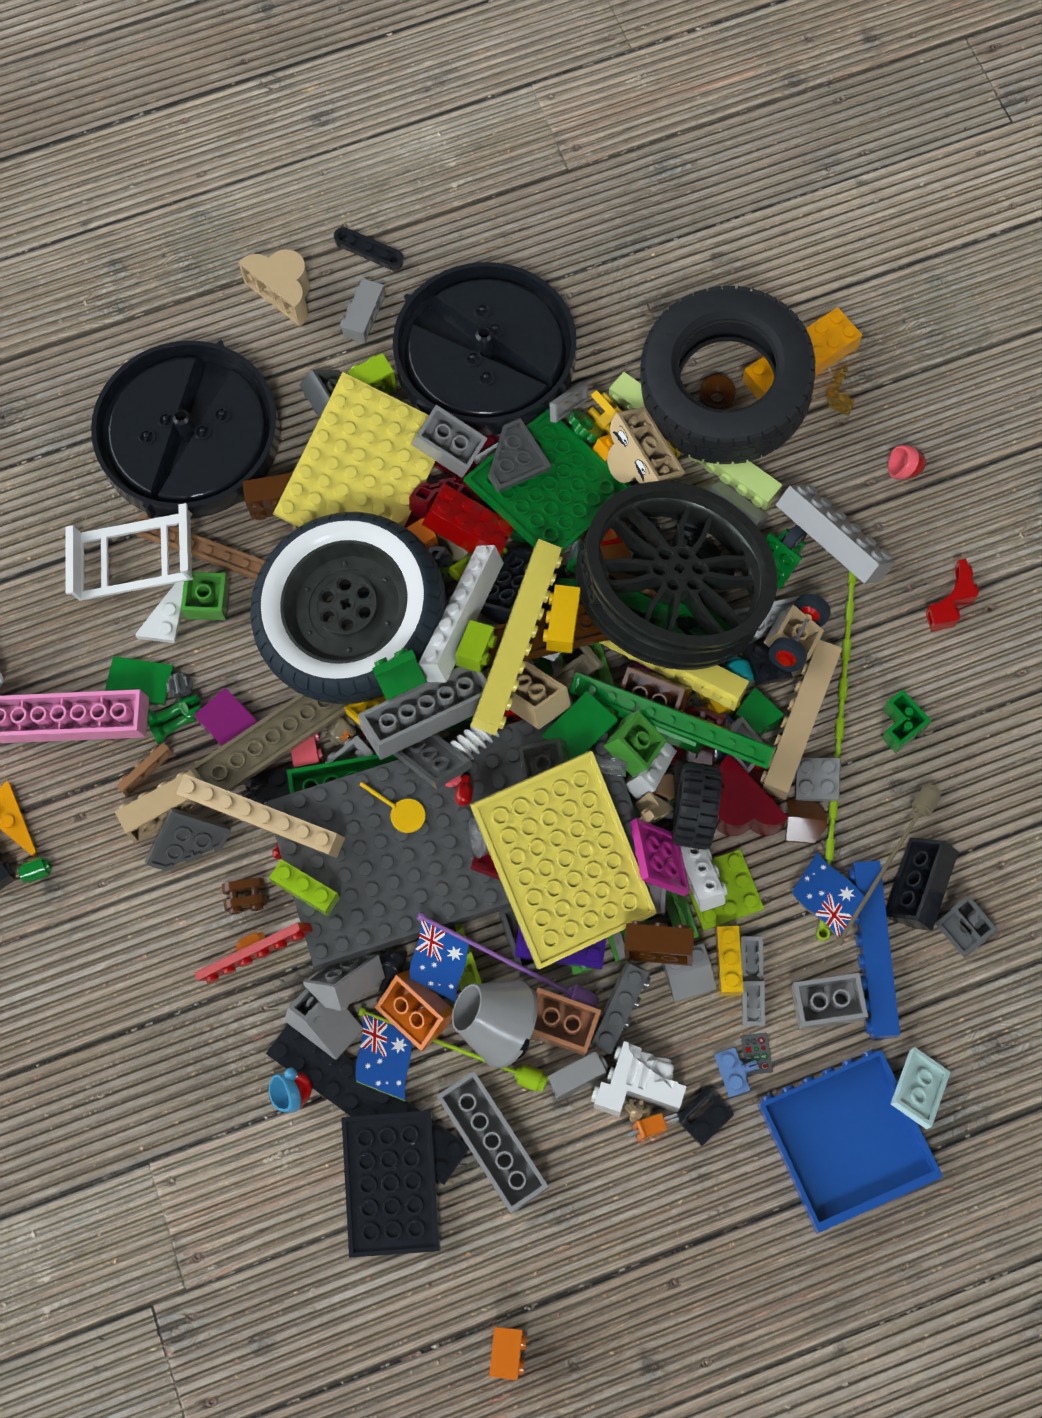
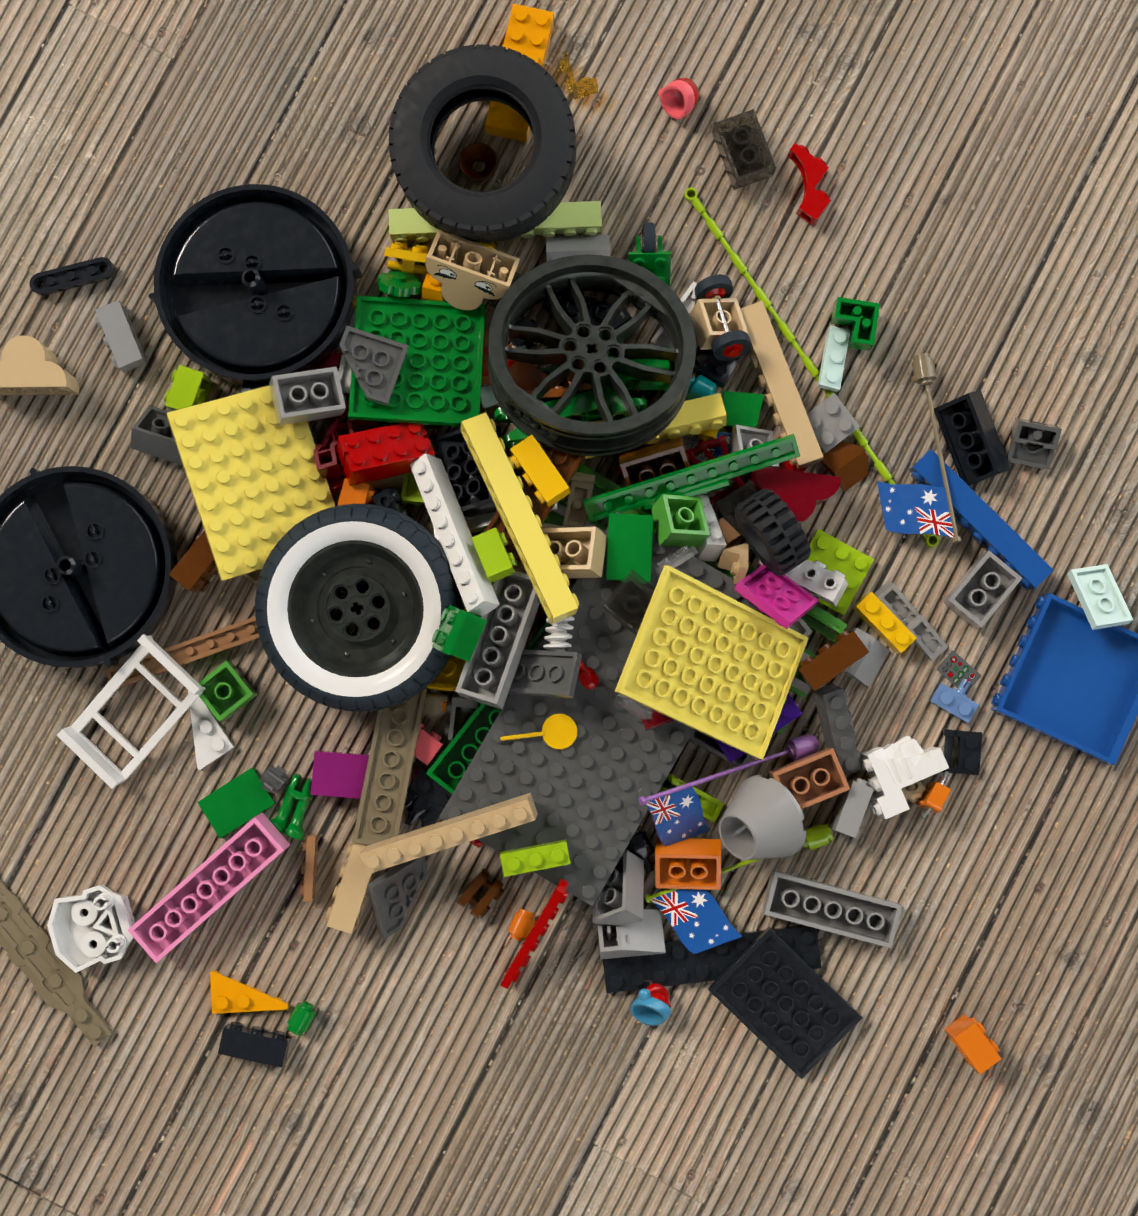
camera: 50 degrees left, 15 degrees up
(568, 401) = (368, 274): light grey tile -> none
(836, 533) = (679, 208): light grey brick -> none
(862, 736) = (833, 358): none -> light aqua plate
(922, 534) = (743, 149): none -> clear smoke brick

